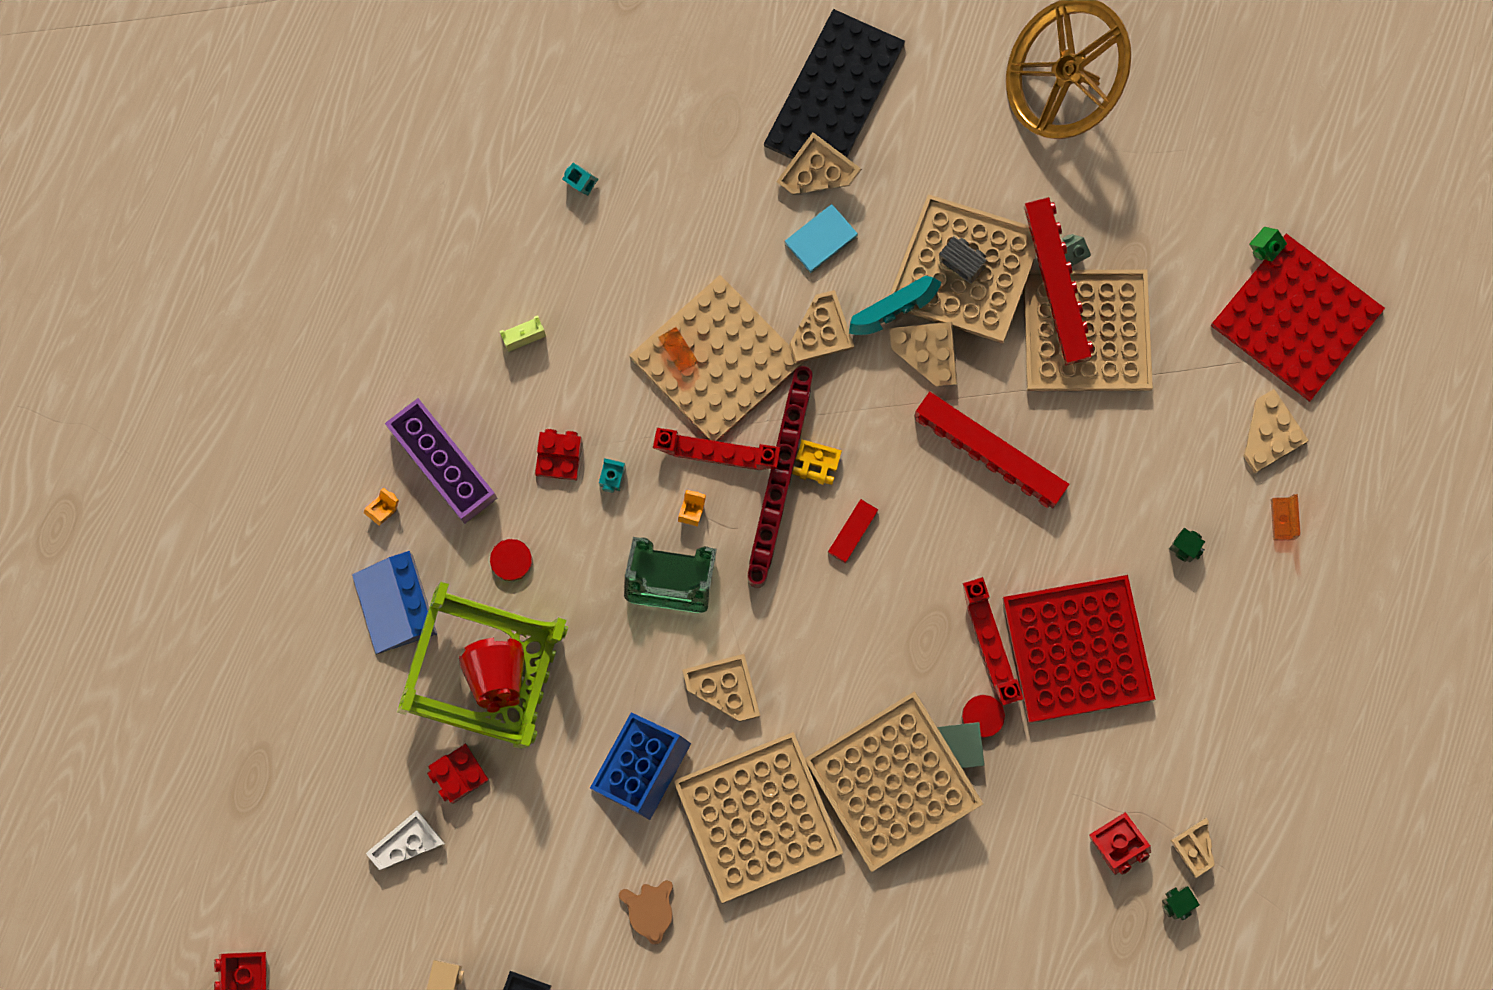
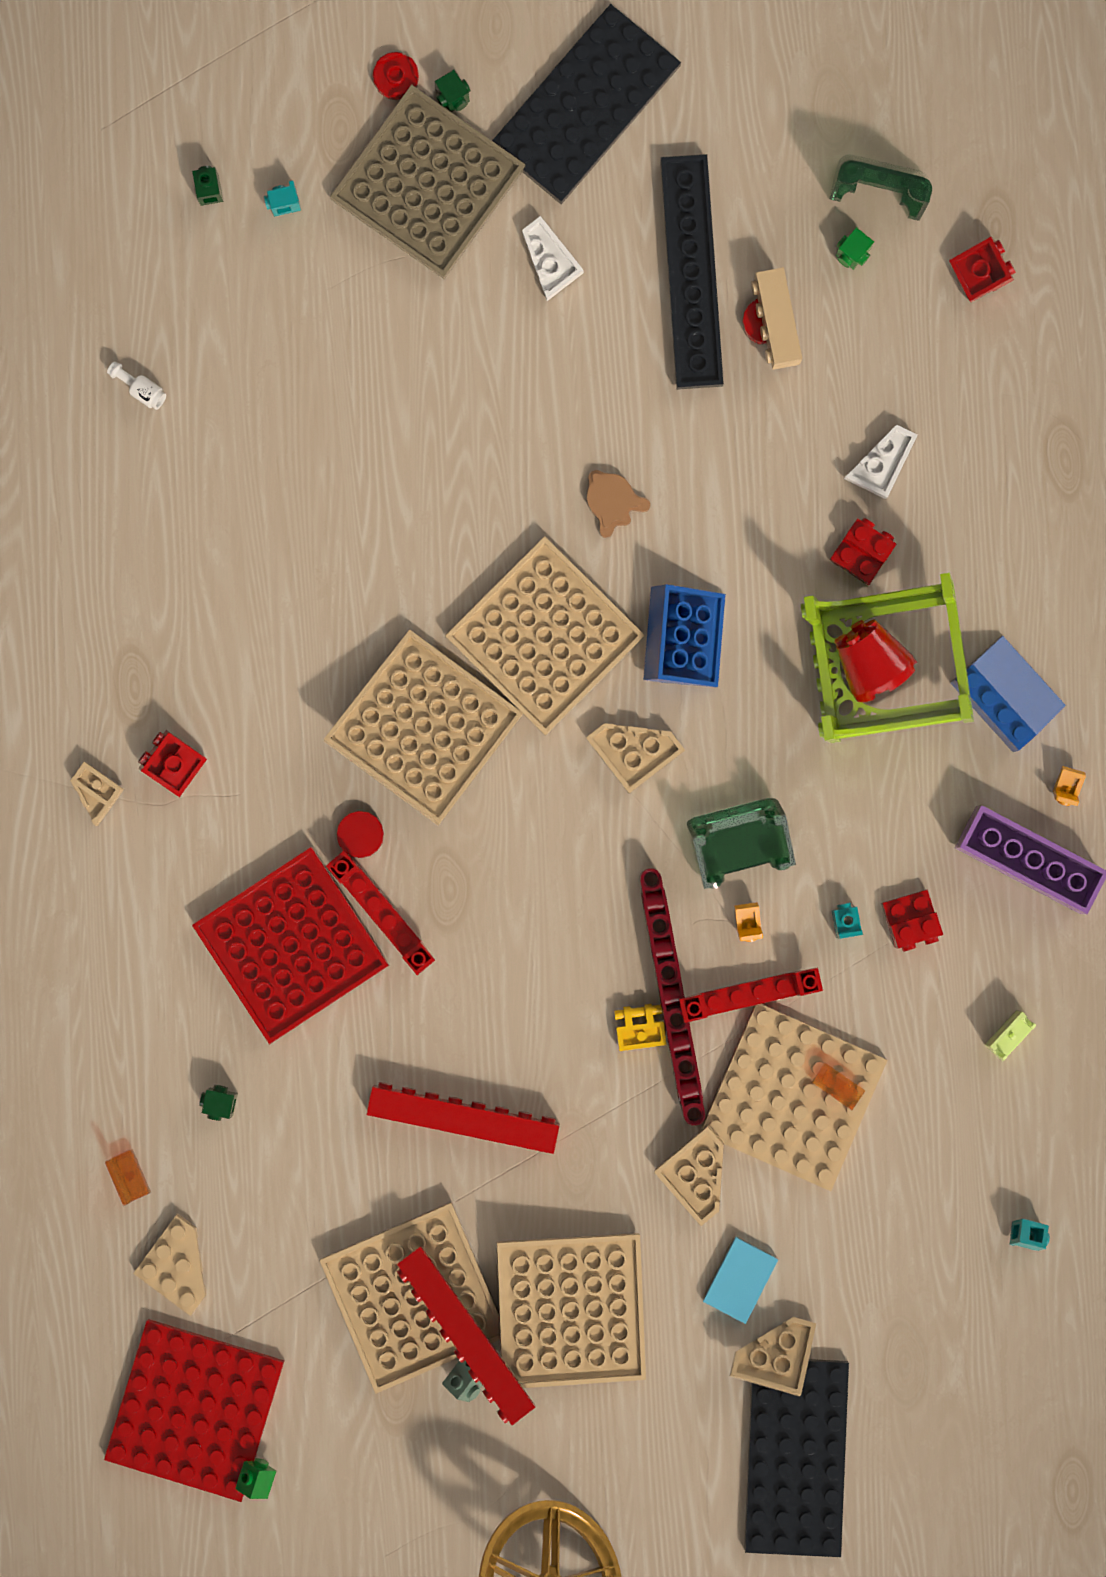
camera: 155 degrees right, 10 degrees up
(511, 559) = (910, 789): red tile -> none
(853, 531) = (572, 971): red tile -> none
(885, 310) = (648, 1208): teal brick -> none
(928, 350) = (573, 1200): tan plate -> none
(963, 259) = (577, 1317): dark grey brick -> none
(965, 743) = (368, 797): sand green tile -> none
(1180, 903) = (91, 729): dark green brick -> none

